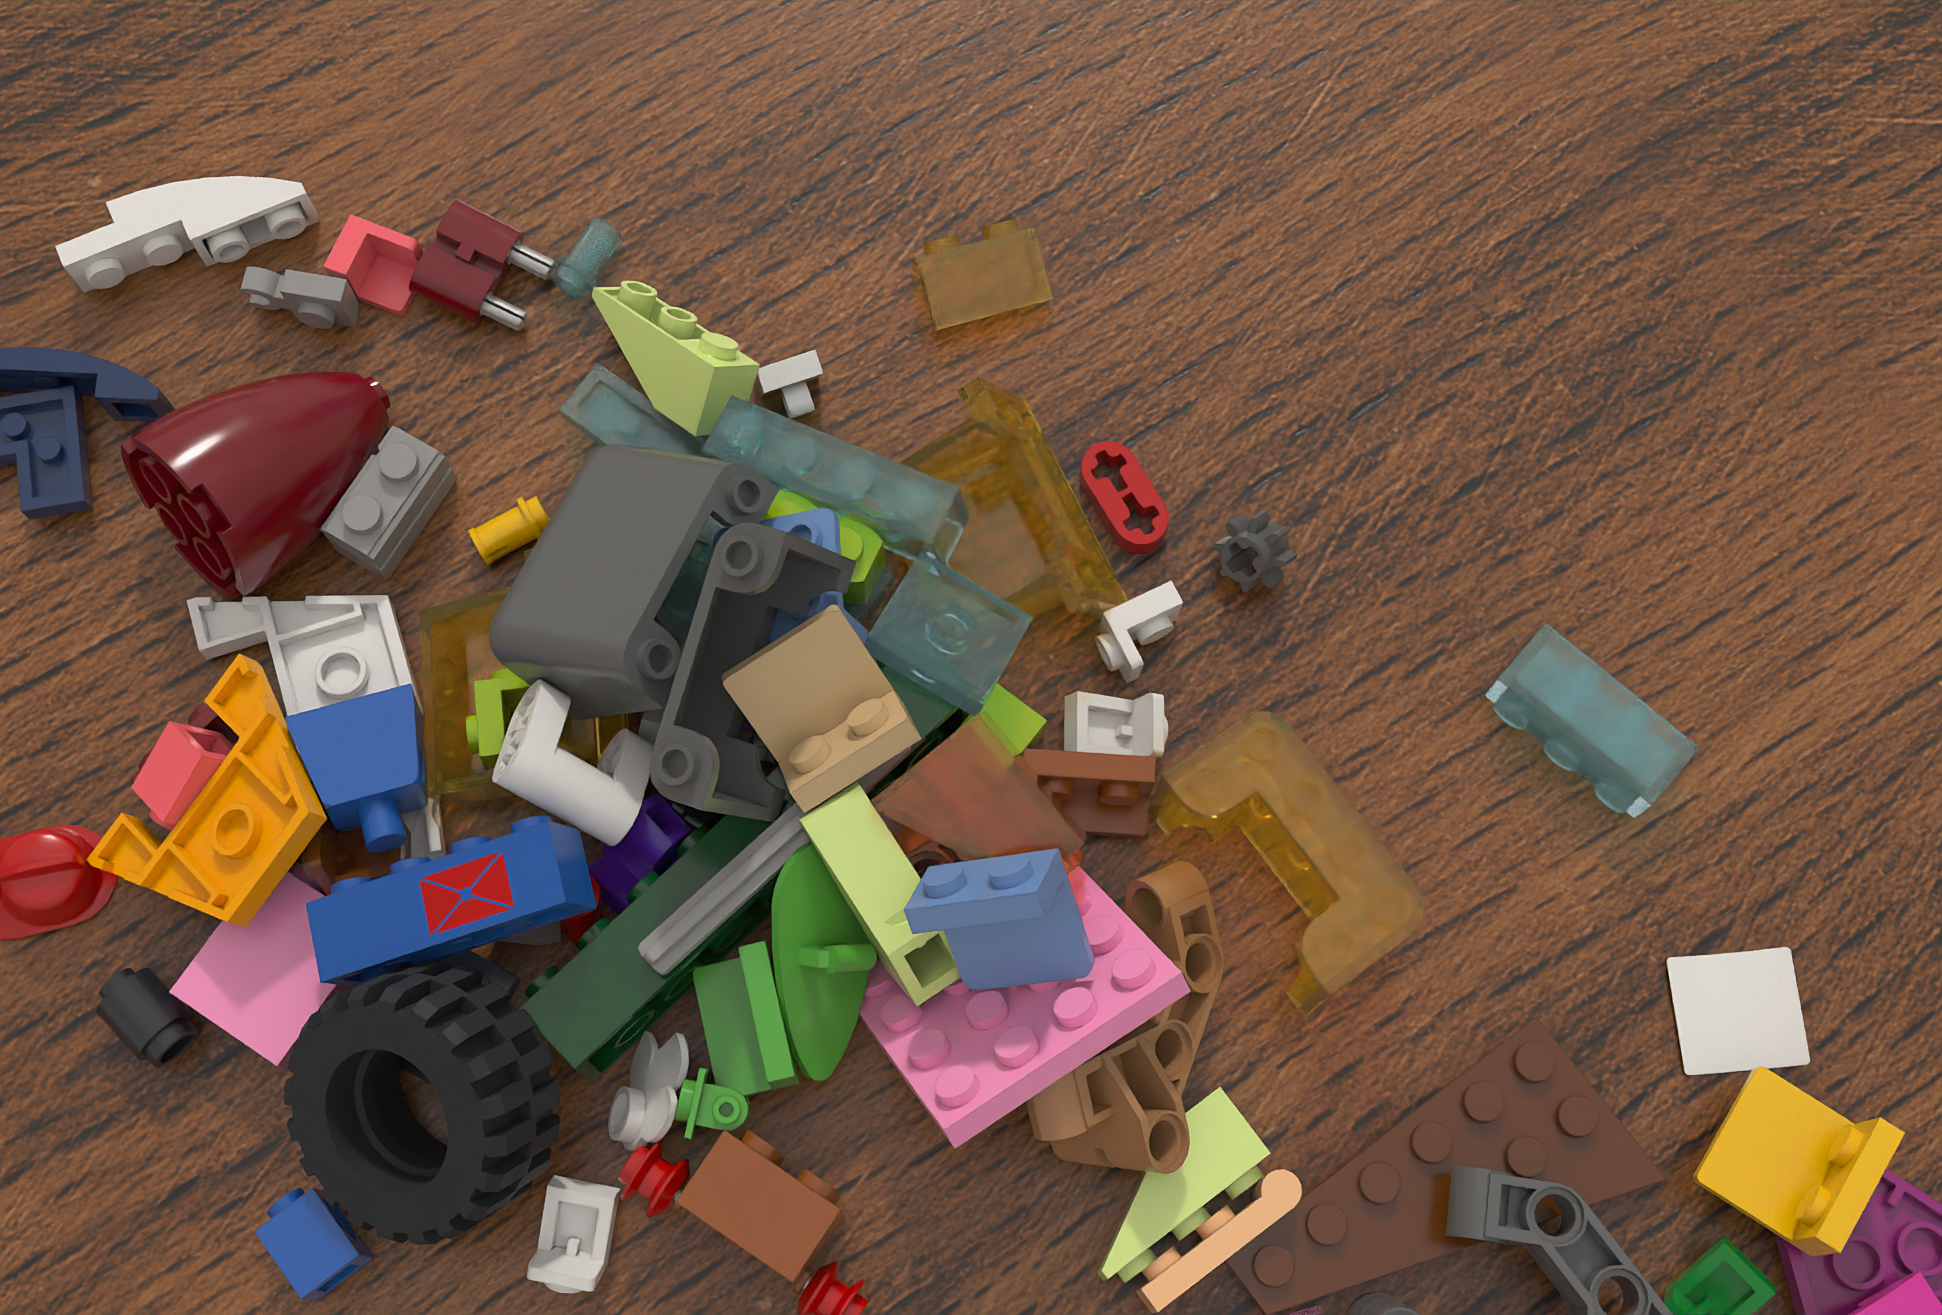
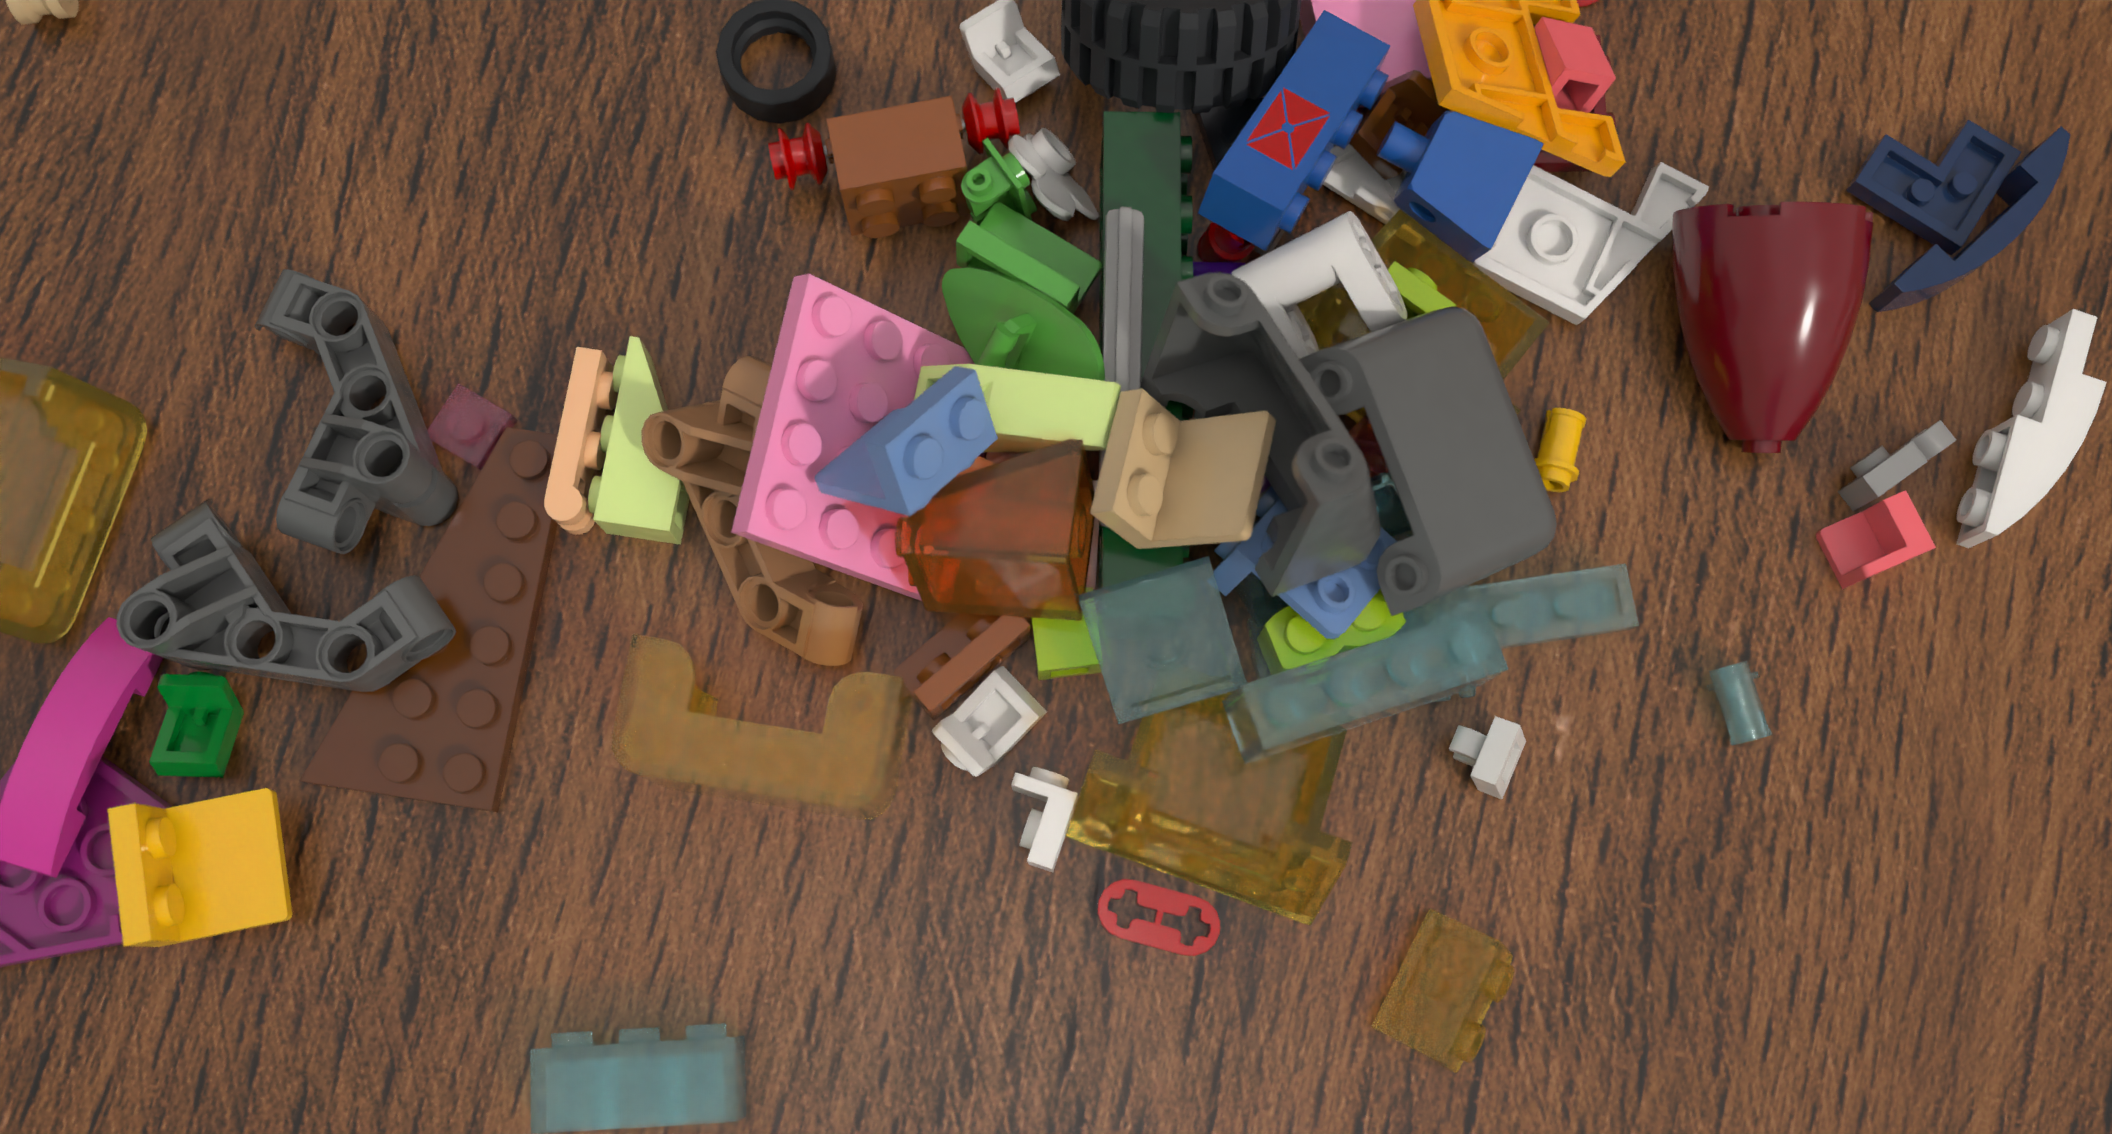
camera: 135 degrees right, 5 degrees up
(389, 502) = (1658, 379): light grey brick -> none
(470, 261) = (1816, 611): dark red piece -> none
(674, 358) = (1587, 683): yellowish green slope -> none
(1239, 558) = (1016, 965): dark grey gear -> none
(1738, 1011) = (346, 966): white sticker -> none

